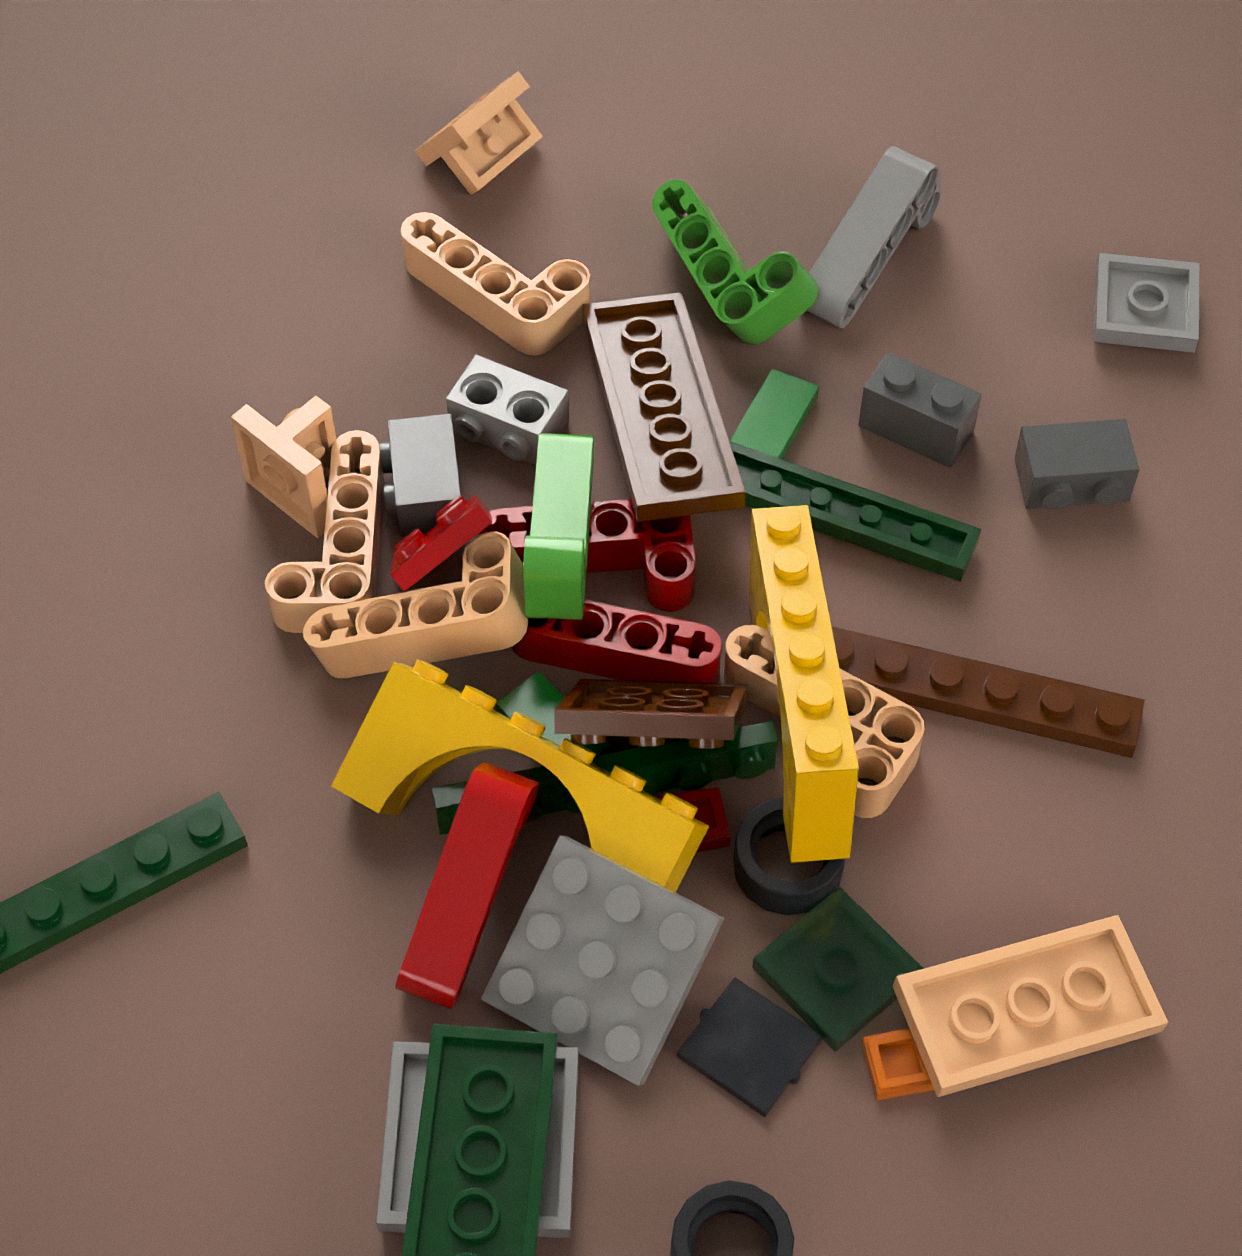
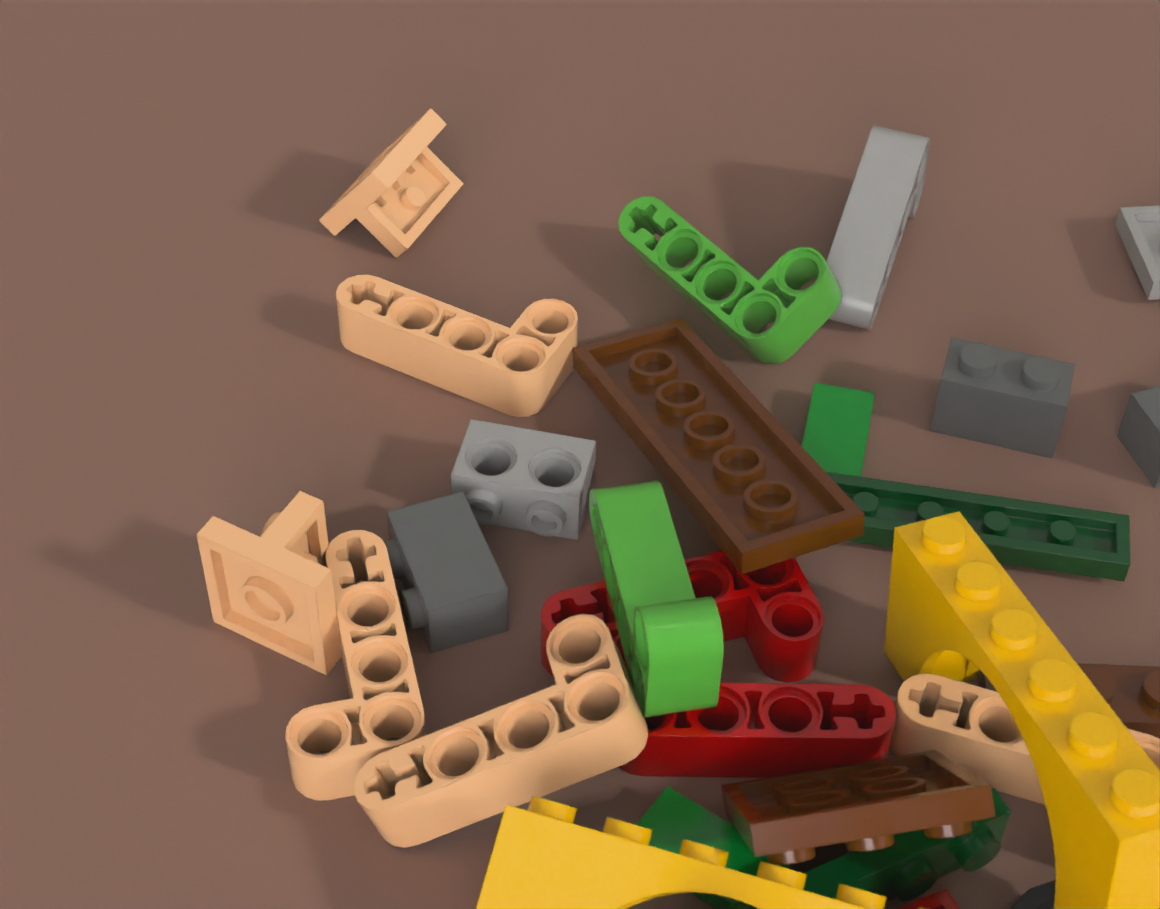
camera: 15 degrees left, 10 degrees down
(422, 552) = (517, 627): red plate -> none

